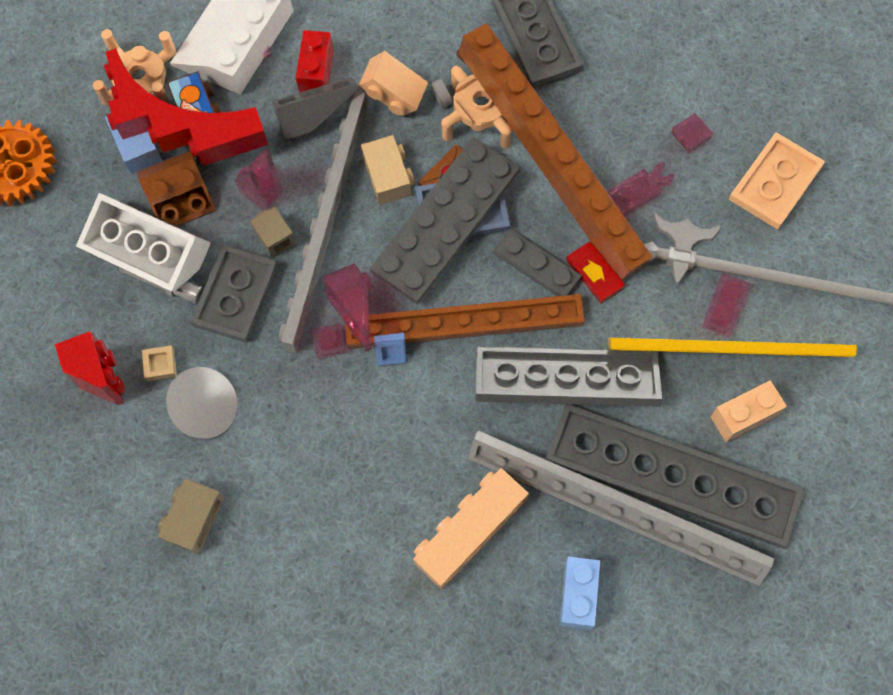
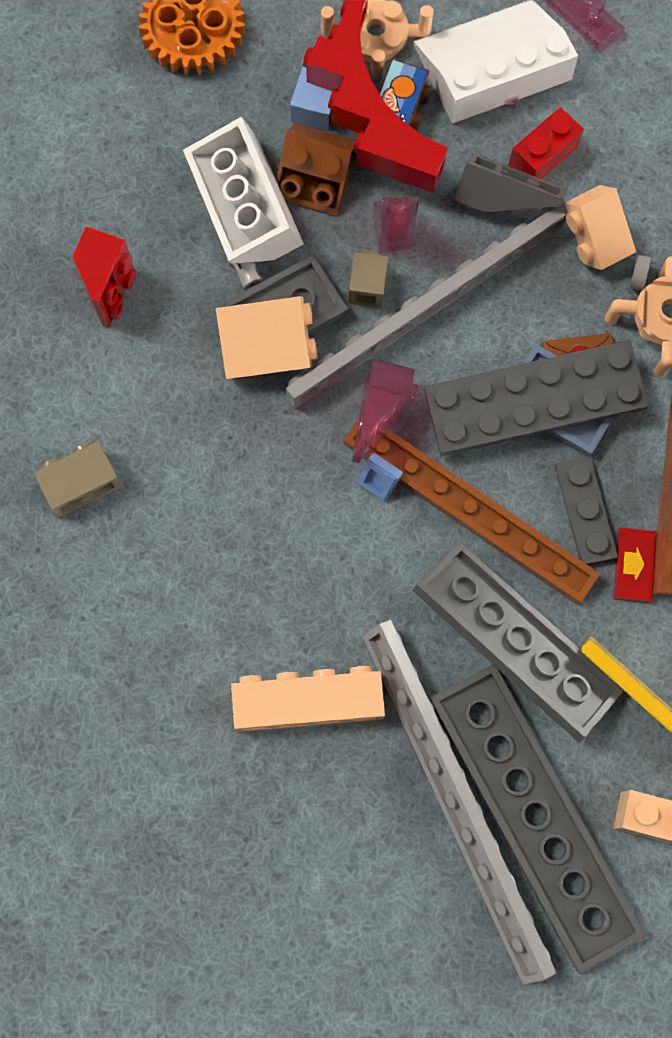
camera: 35 degrees right, 5 degrees up
(159, 363) = (166, 318): tan plate -> none
(201, 402) = (172, 384): light grey shield -> none
(239, 320) = (266, 337): none -> light nougat panel
(329, 341) = (332, 422): clear pink plate -> none
(386, 169) = (523, 304): tan brick -> none
(579, 593) = (351, 844): light blue brick -> none

